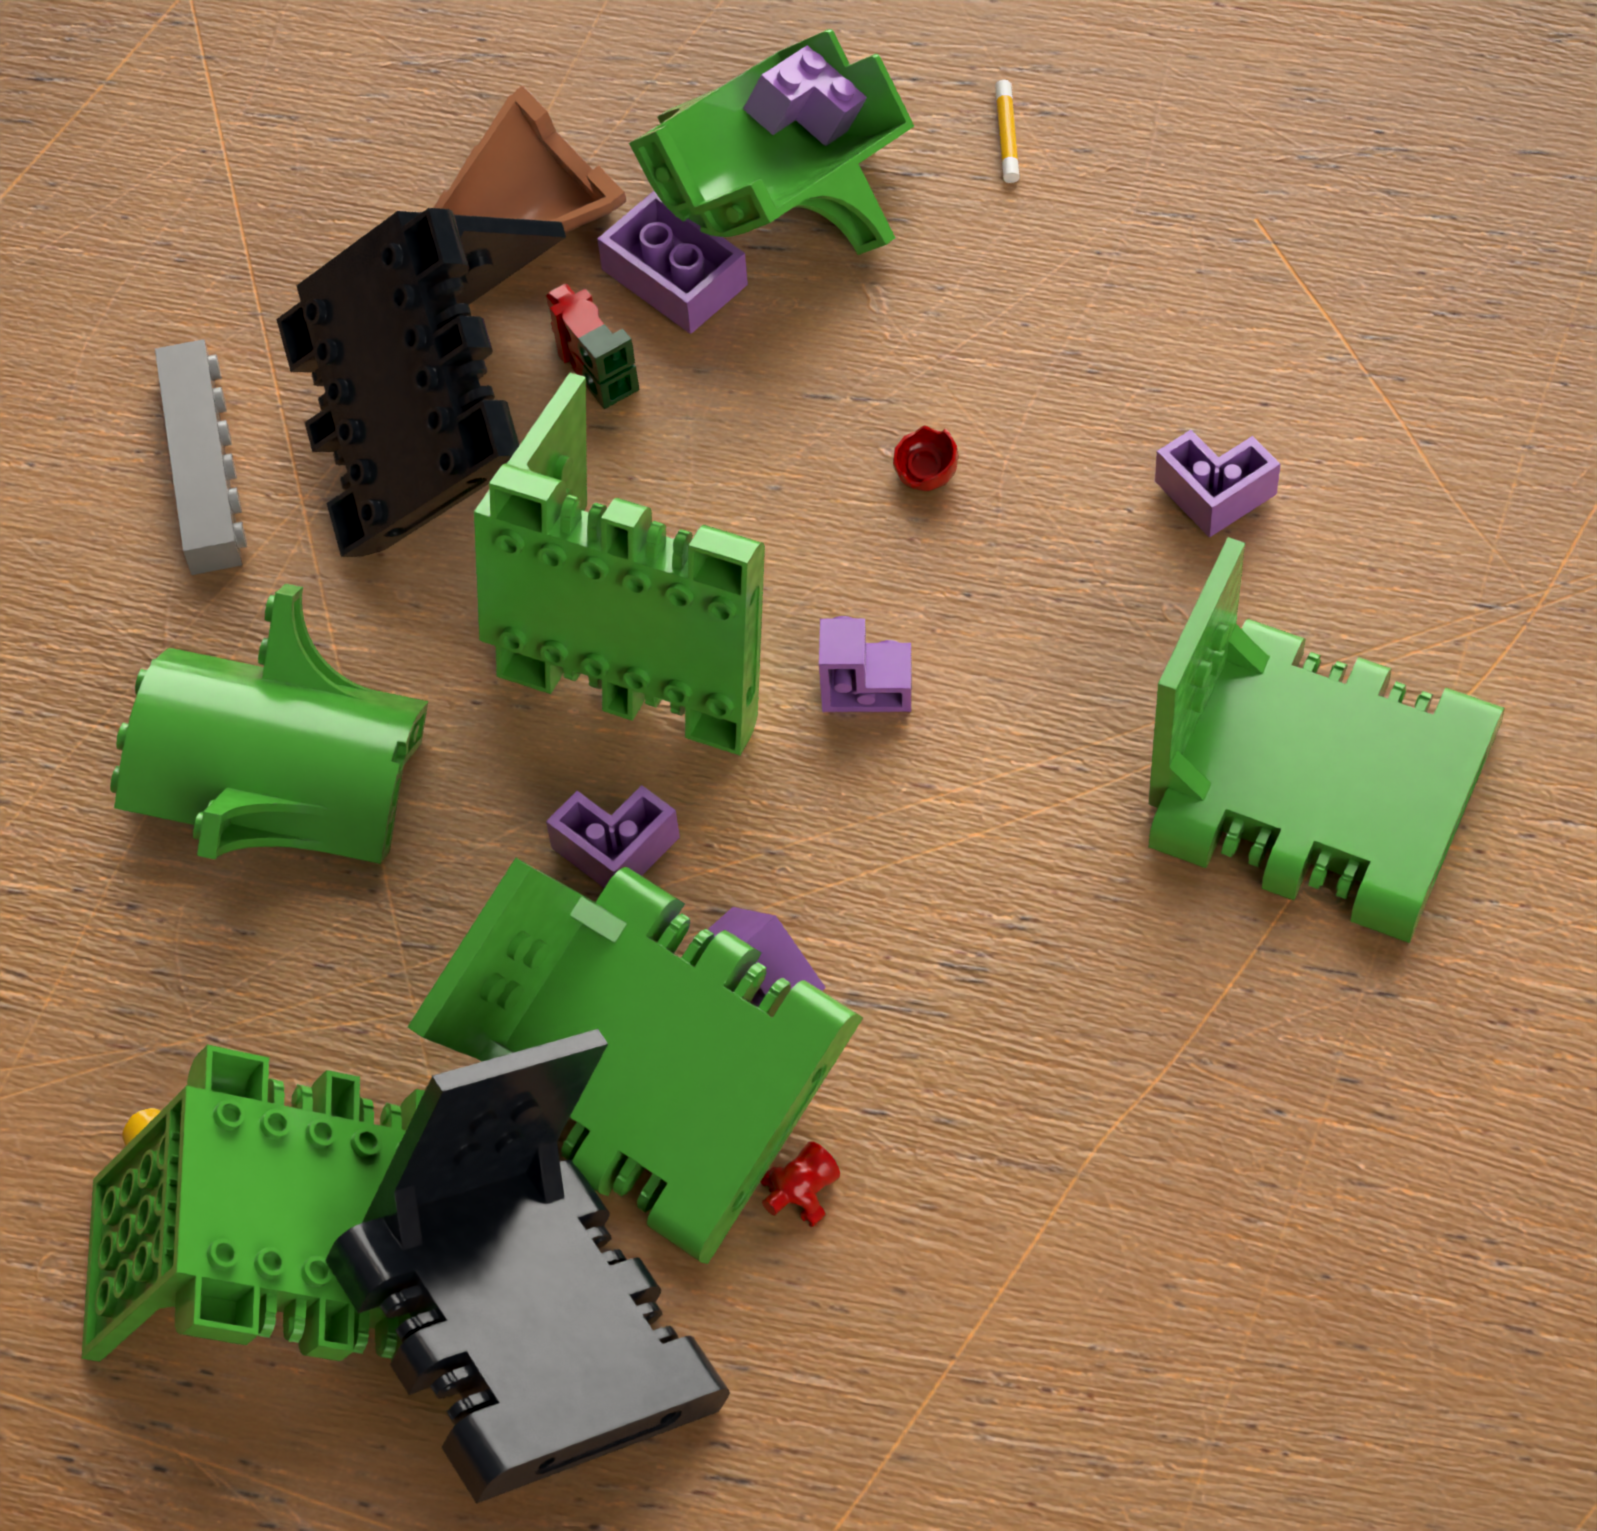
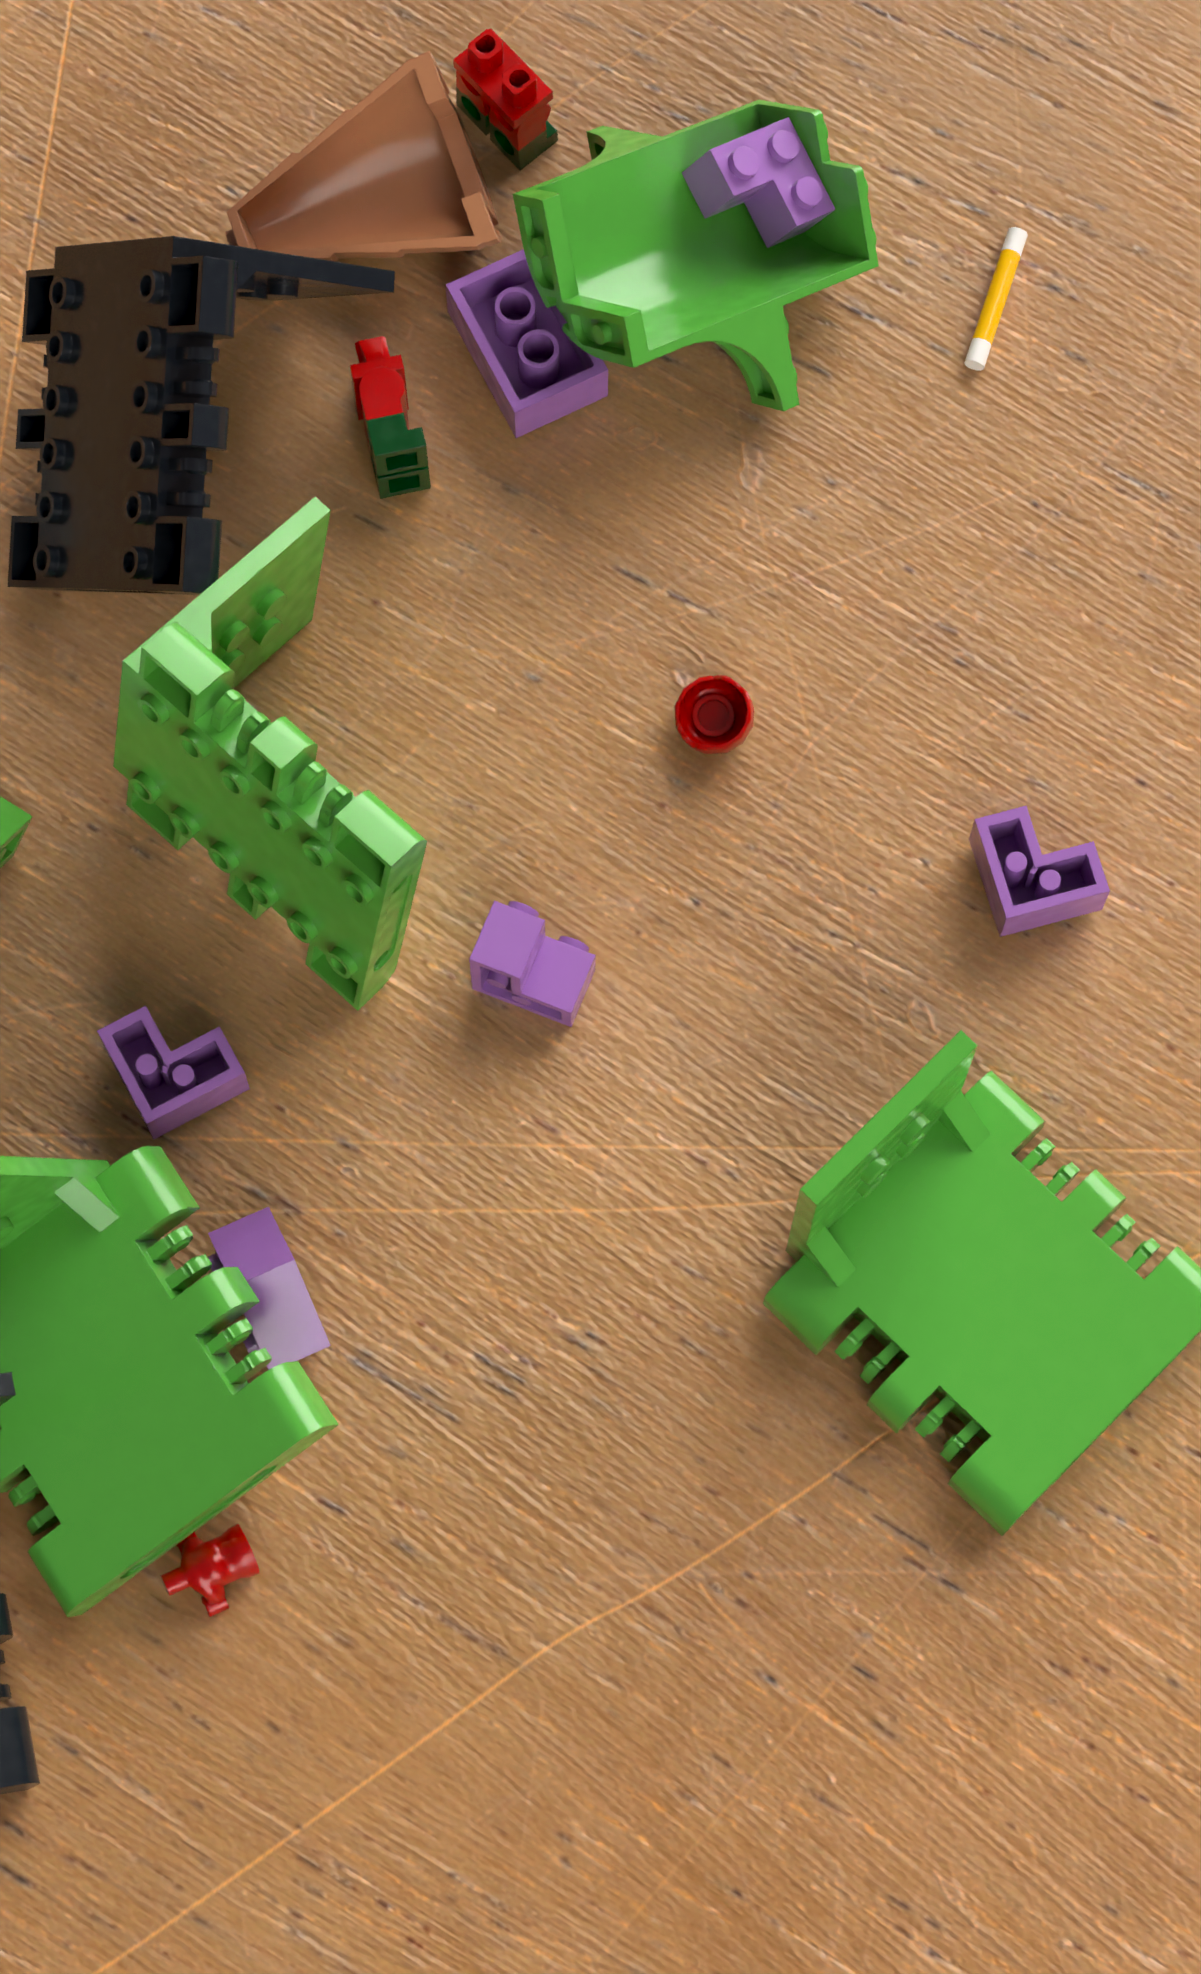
camera: 15 degrees right, 15 degrees up
(589, 107) = (504, 98): none -> red hips

